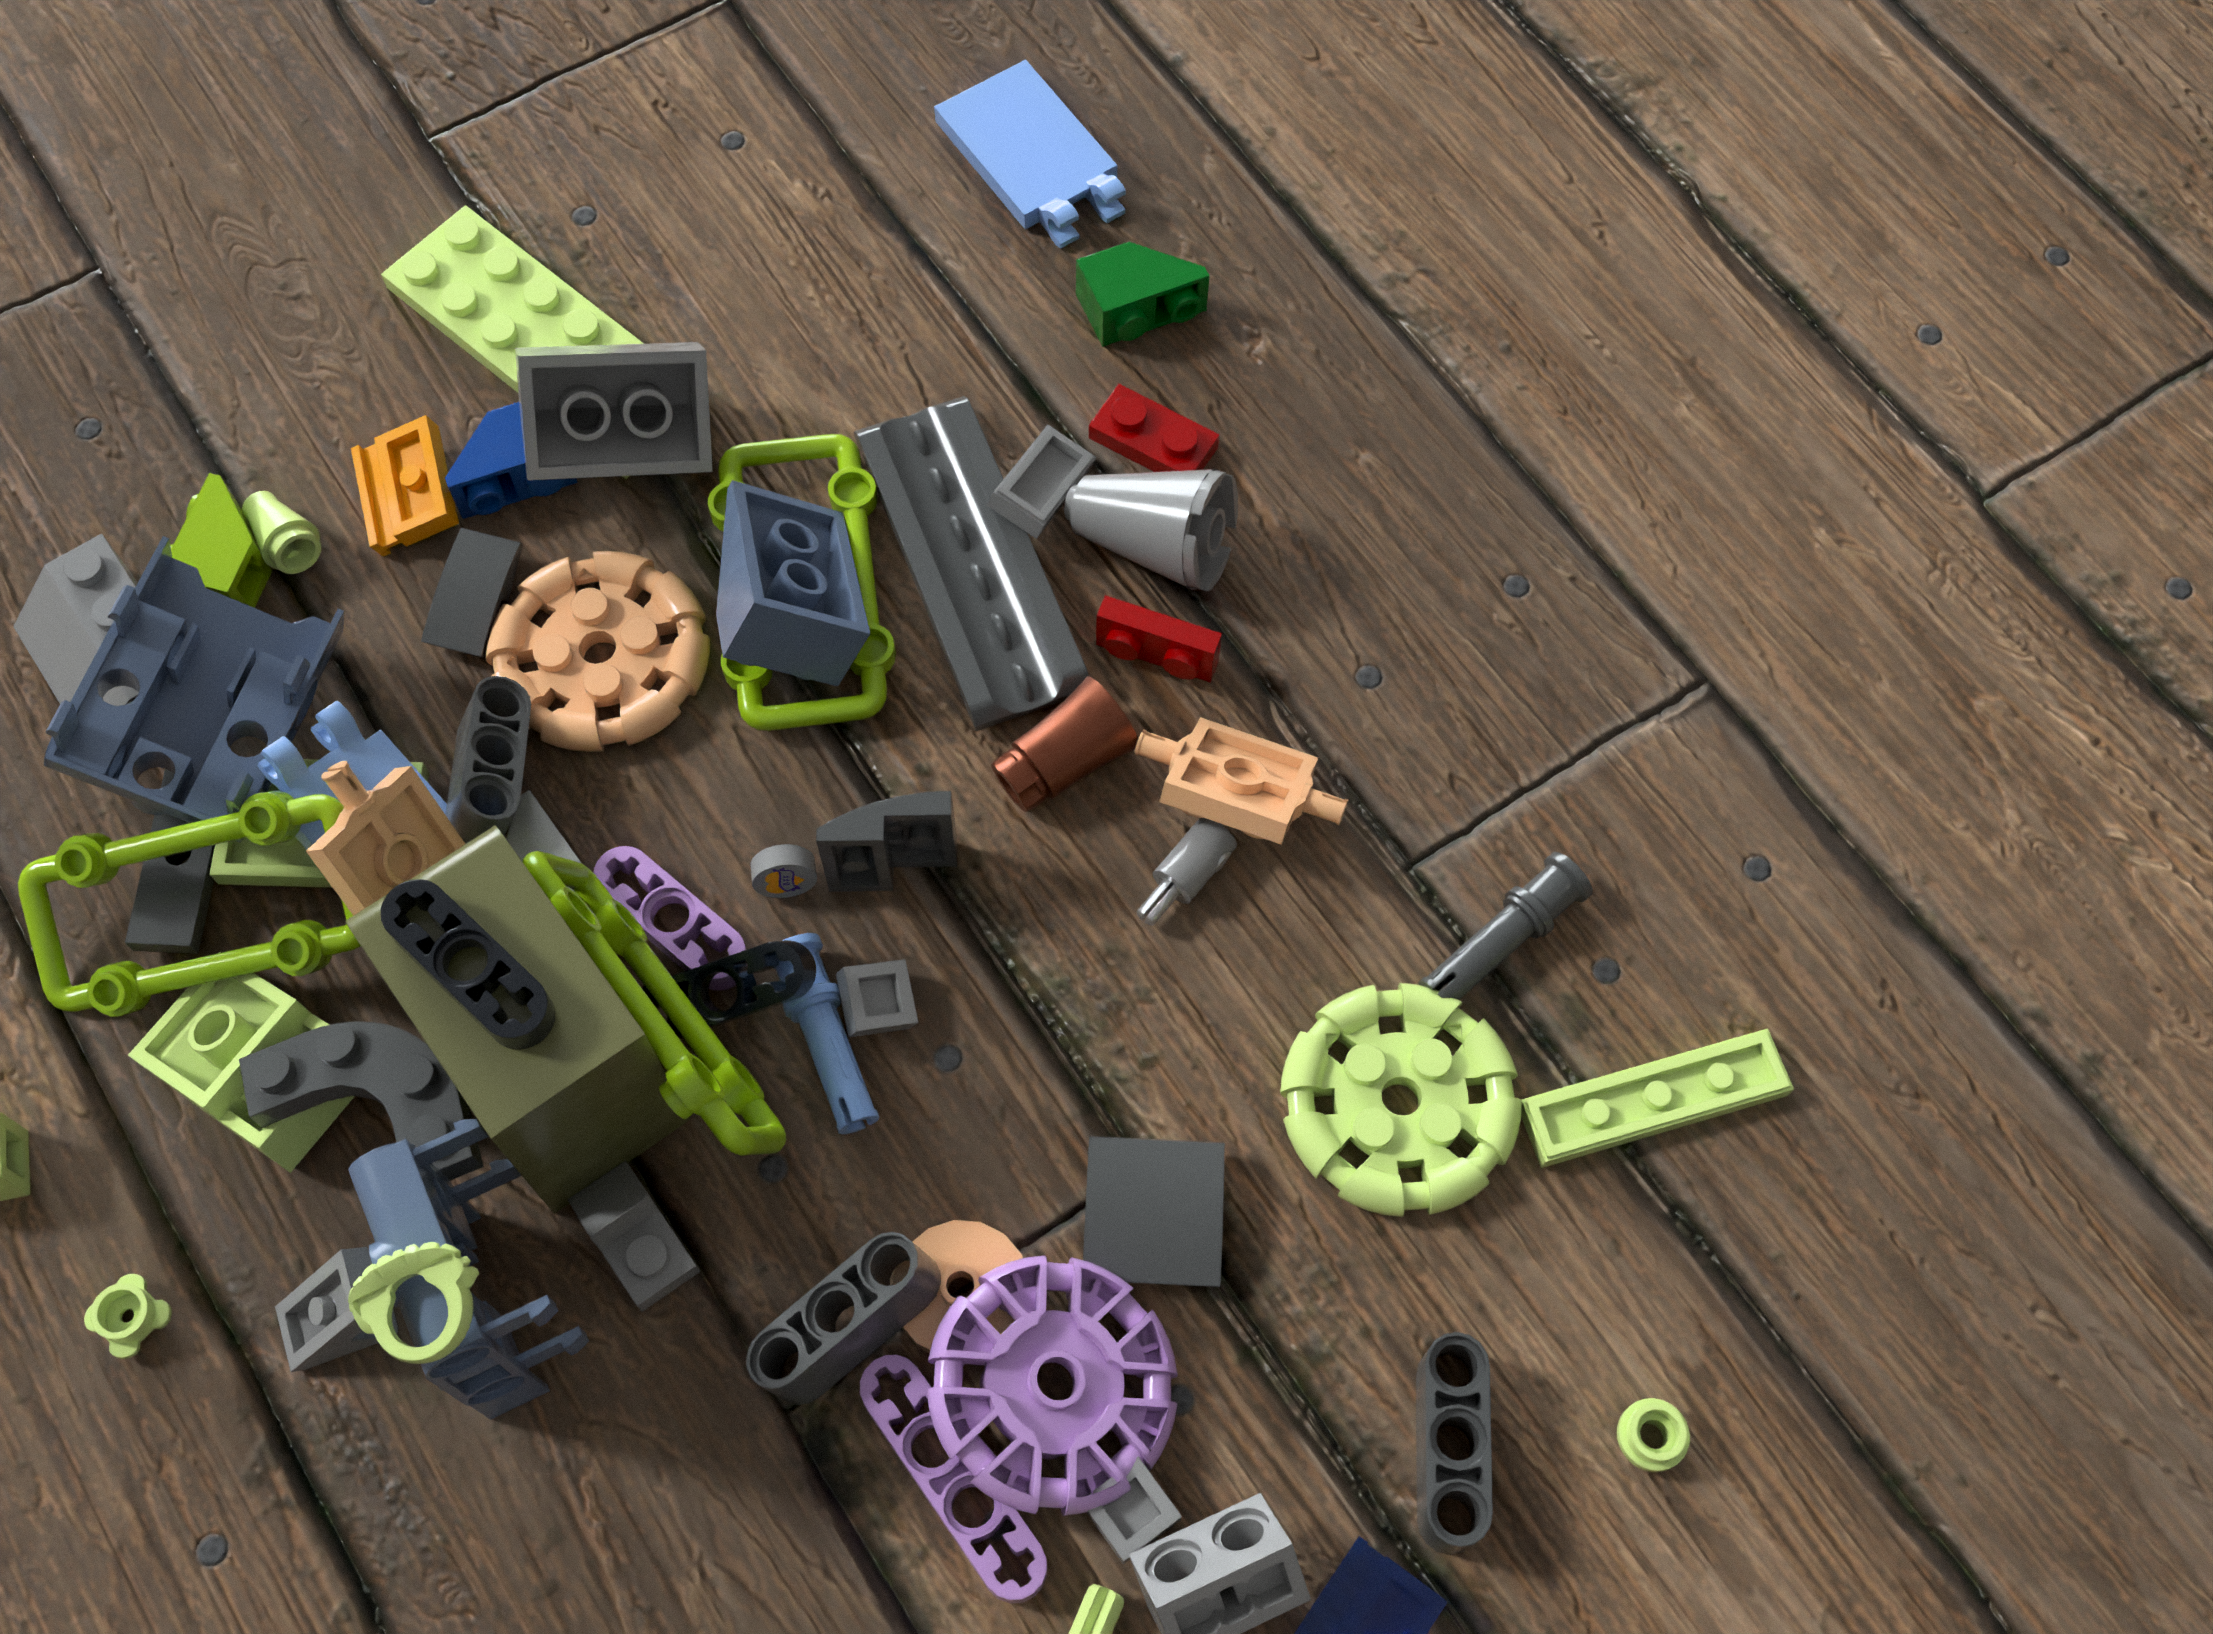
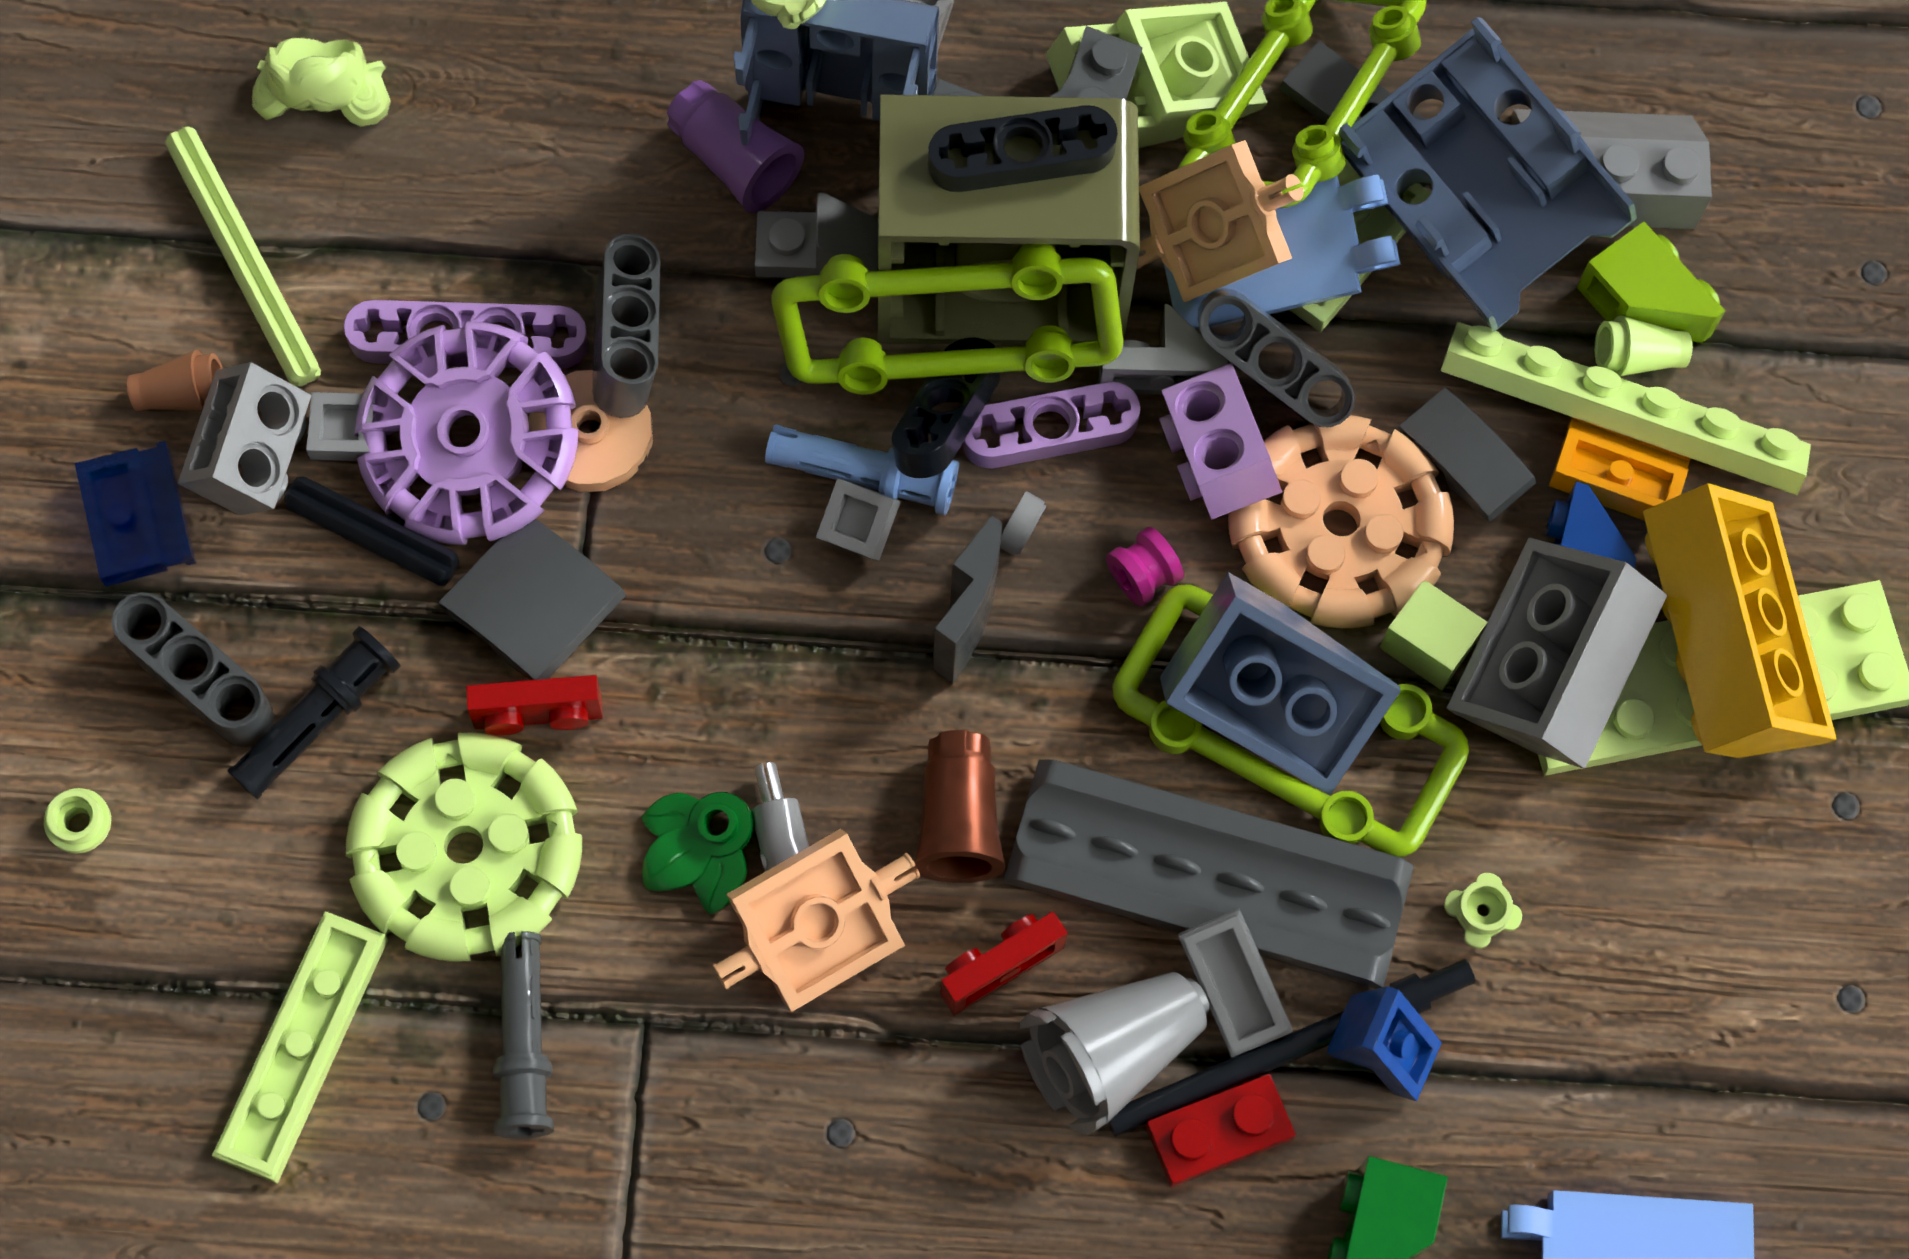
camera: 125 degrees right, 5 degrees up
(347, 515) = (1627, 407): none -> yellowish green plate
(506, 306) = (1737, 623): none -> yellow slope
(584, 1389) = (710, 130): none -> medium lavender plant
(585, 746) = (1223, 440): none -> lavender brick
(655, 513) = (1432, 634): none -> yellowish green panel
(750, 755) = (1145, 566): none -> dark pink wheel
(851, 359) = (1492, 894): none -> yellowish green plate
(959, 380) = (1208, 1082): none -> black bar
(1010, 363) = (1388, 1037): none -> blue slope
(1203, 1405) = (372, 531): none -> black axle
(1226, 1111) = (561, 702): none -> red plate
(1258, 926) = (690, 852): none -> green plate
(1369, 1307) = (334, 691): none -> black pin

